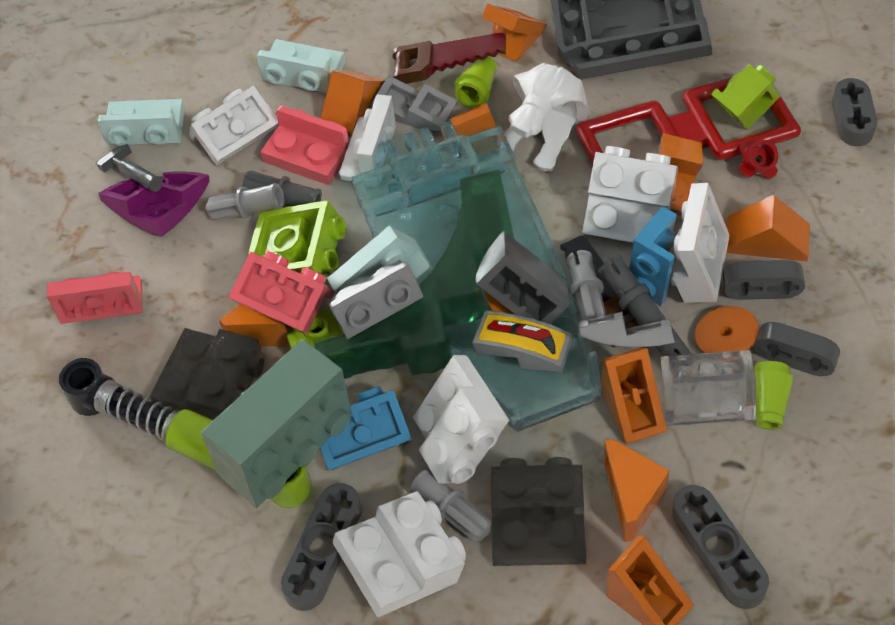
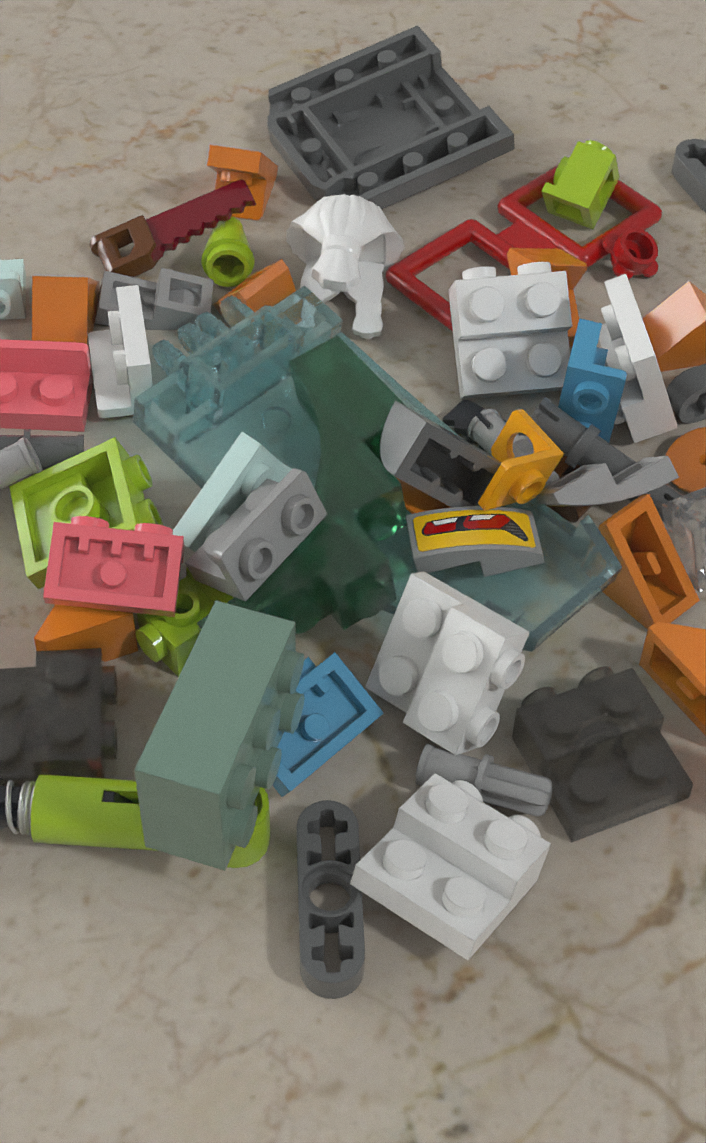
camera: 30 degrees left, 5 degrees down
(571, 309) = (520, 477): none -> light orange bracket

